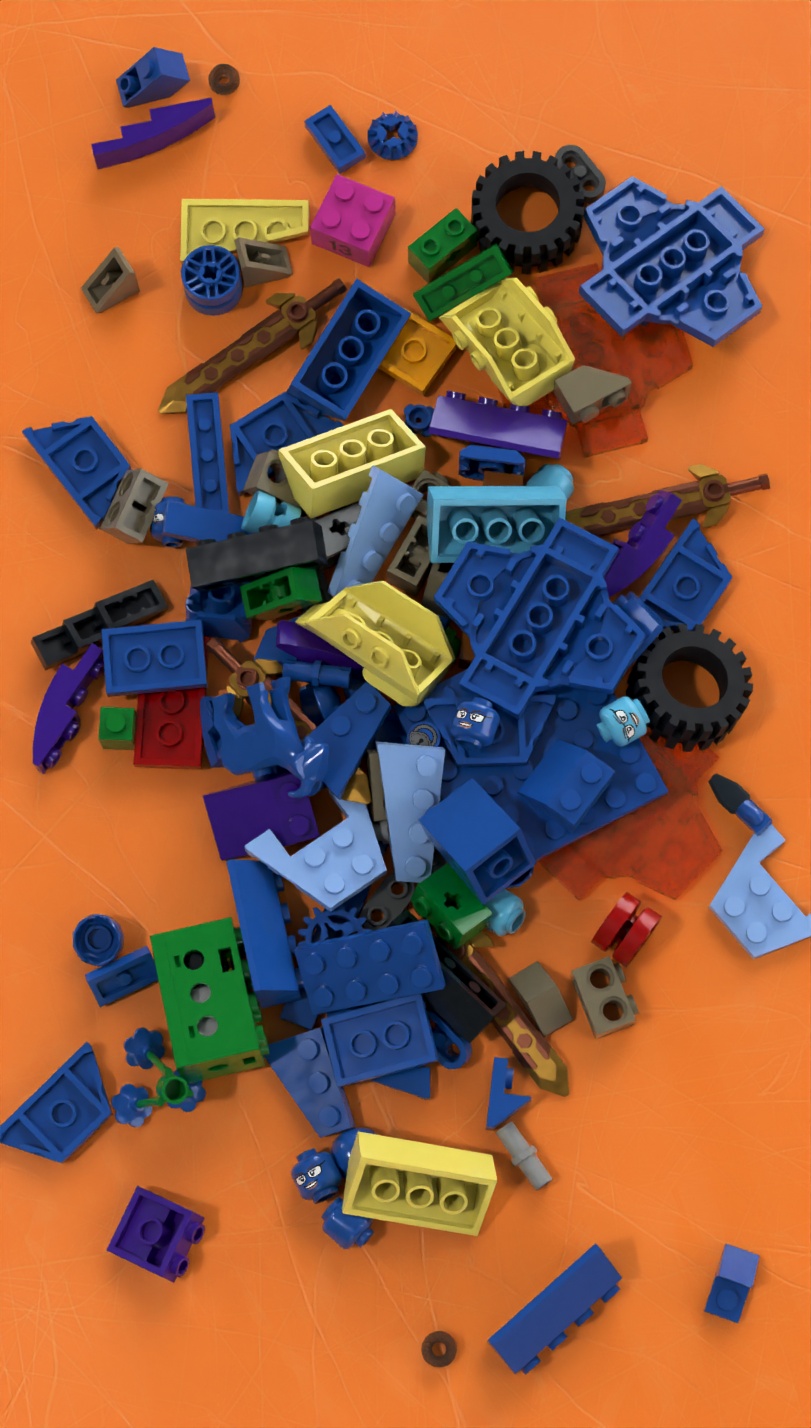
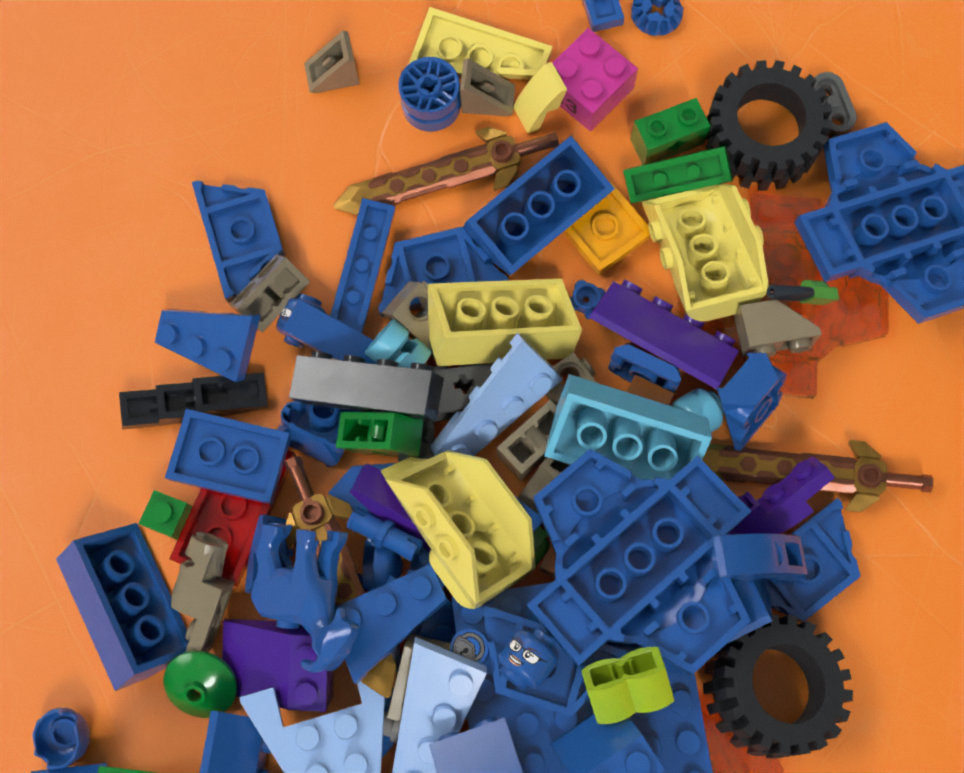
camera: 20 degrees right, 0 degrees up
(56, 716) = (112, 483): dark purple slope -> none
(96, 564) = (210, 339): none -> blue wing
(108, 815) = (123, 604): none -> blue slope
(175, 778) = (202, 590): none -> dark tan plate
(197, 842) = (205, 674): none -> green dish
(314, 251) = (540, 96): none -> light yellow slope
(563, 717) = (628, 685): none -> lime brick
(591, 457) = (751, 397): none -> blue slope
(610, 350) = (808, 292): none -> piece
(623, 721) = (694, 709): medium azure head -> none
(637, 580) = (759, 557): none -> blue slope

